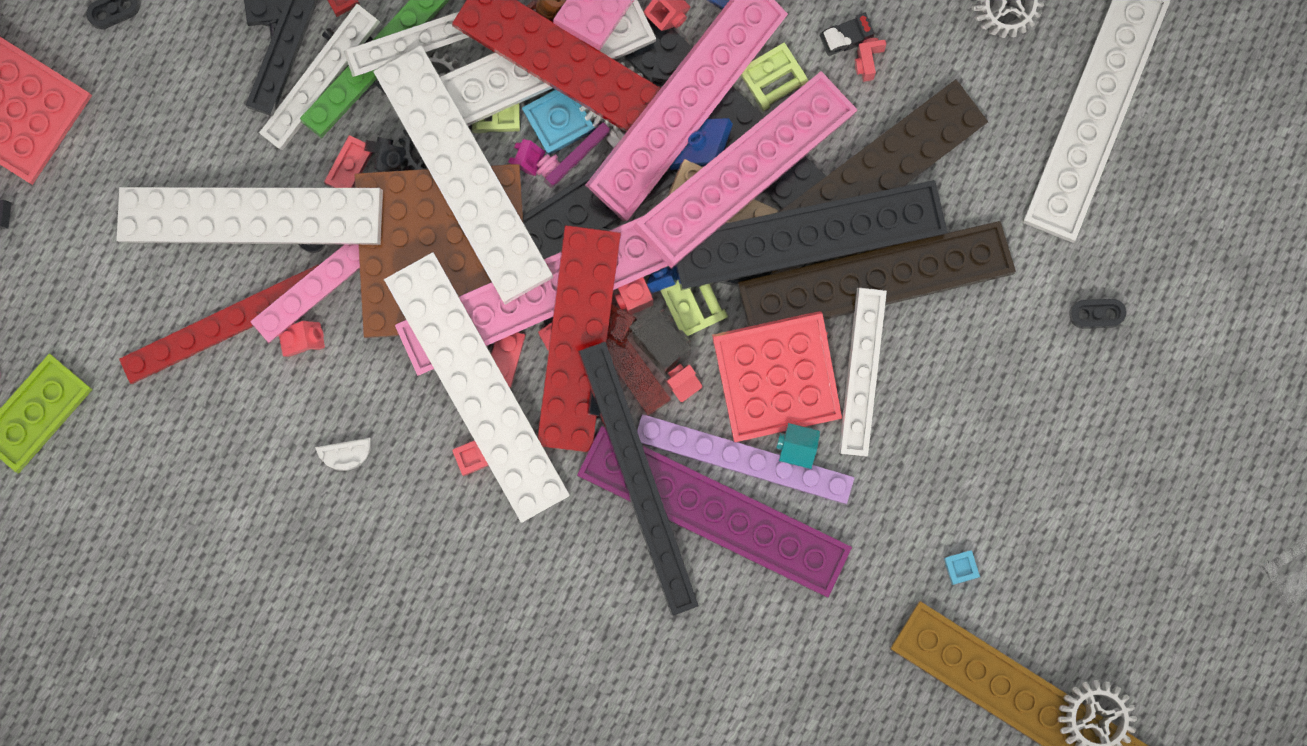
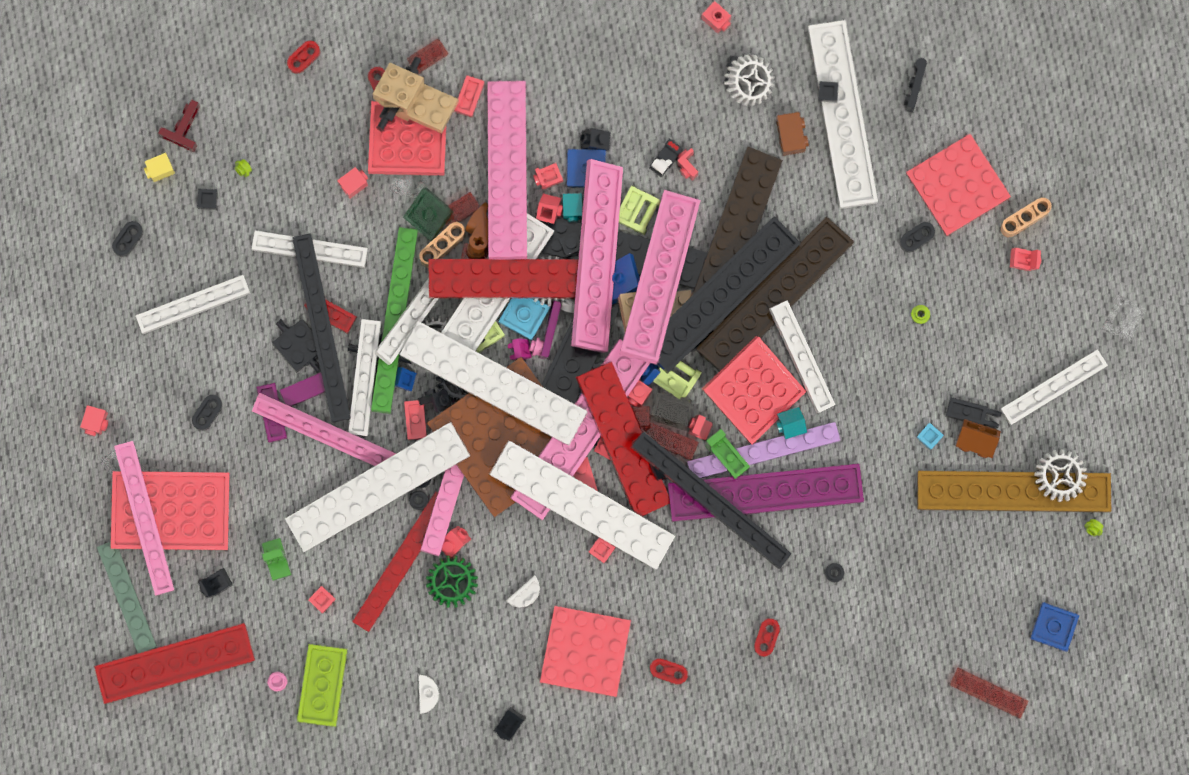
camera: 35 degrees left, 0 degrees up
(79, 227) = (276, 559): none -> bright green bracket
(100, 310) = (322, 599): none -> coral plate
(152, 501) = (428, 694): none -> white plate
(188, 55) = (274, 430): none -> magenta tile
(221, 600) = (509, 724): none -> black bracket
(227, 107) = (320, 430): none -> bright pink plate
(238, 50) = (303, 390): none -> magenta tile
(266, 395) = (460, 577): none -> green gear
(285, 257) = (414, 495): none -> black plate
(367, 109) = (405, 379): none -> blue plate
(372, 569) = (585, 651): none -> coral plate
(456, 657) = (669, 669): none -> red plate
(602, 690) = (766, 637): none -> red plate
(694, 434) = (727, 454): none -> bright green bracket
(695, 24) = (572, 207): none -> teal brick
(737, 653) = (839, 568): none -> black plate
(1019, 95) = (791, 134): none -> dark orange brick
(1020, 608) = (978, 439): none -> dark orange brick
(1032, 570) = (970, 411): none -> black hinge
(1035, 413) = (920, 320): none -> lime plate
(1096, 71) = (828, 91): none -> black plate
(1155, 602) = (1053, 387): none -> white plate
(1188, 281) = (958, 185): none -> coral plate
(1210, 127) = (915, 84): none -> black plate
(1217, 421) = (1025, 259): none -> coral bracket
(1262, 367) = (1032, 211): none -> light nougat beam

